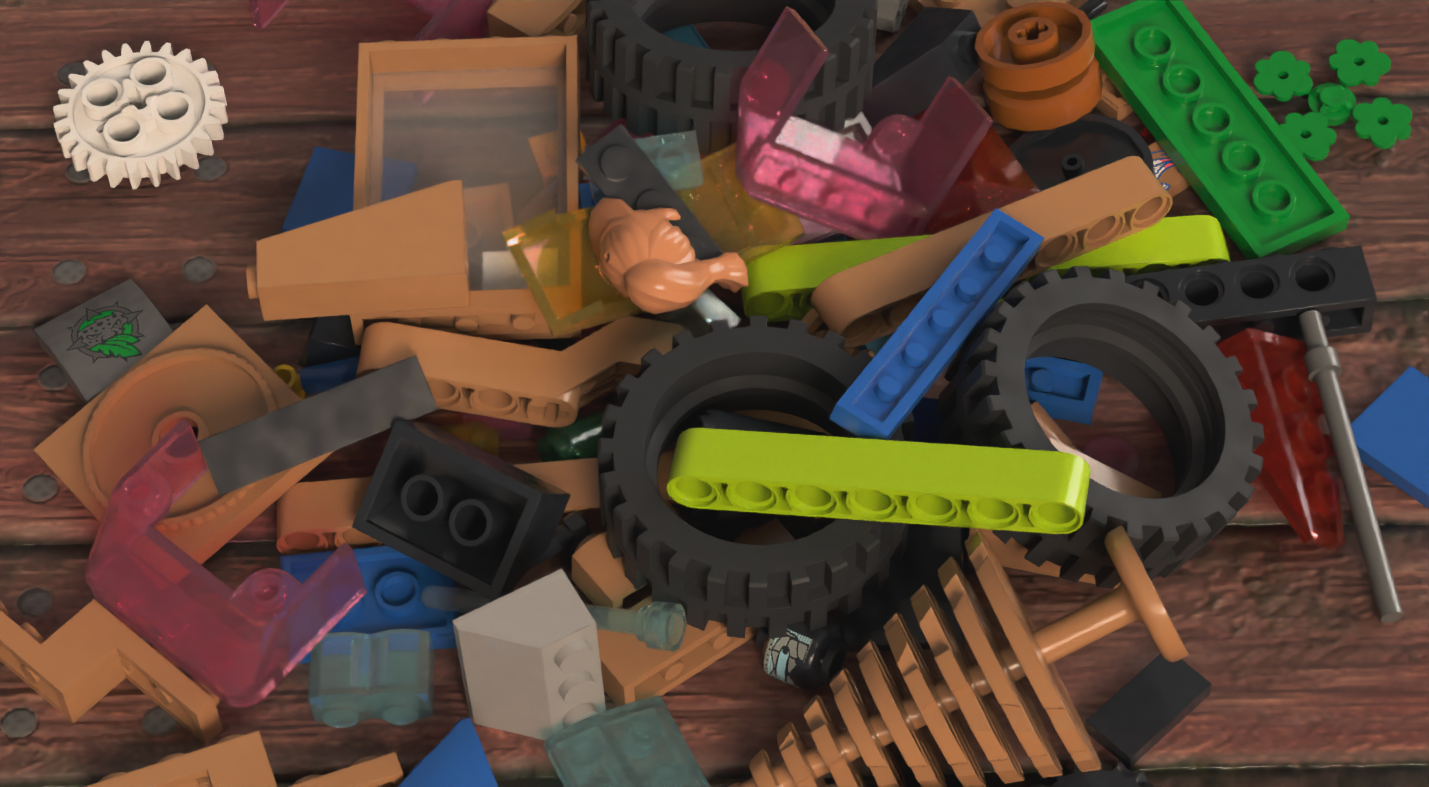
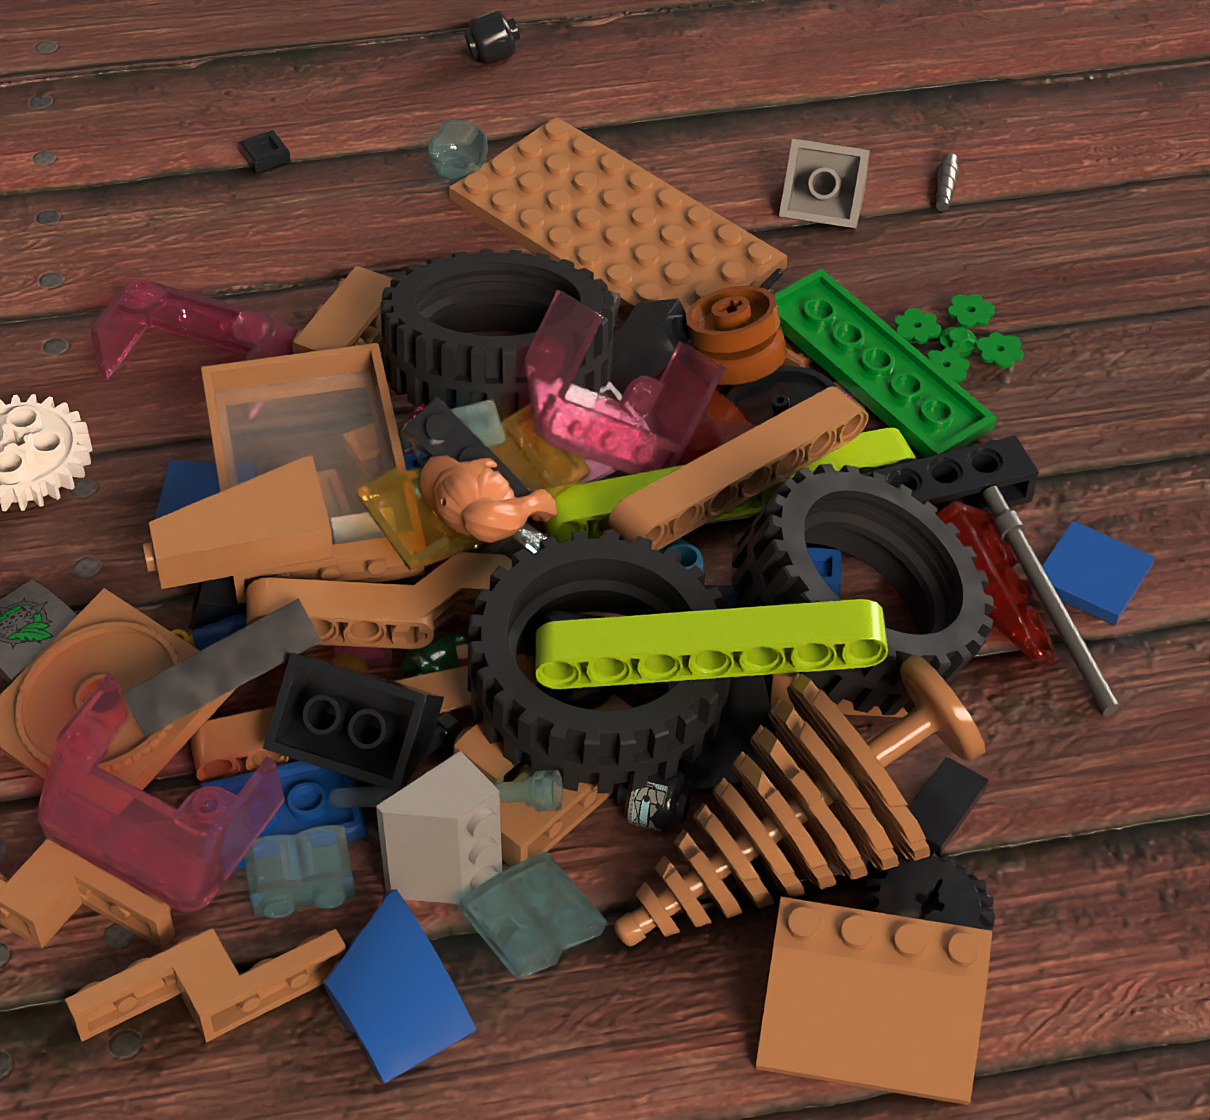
camera: 15 degrees left, 5 degrees down
(937, 328) = (723, 525): blue plate -> none

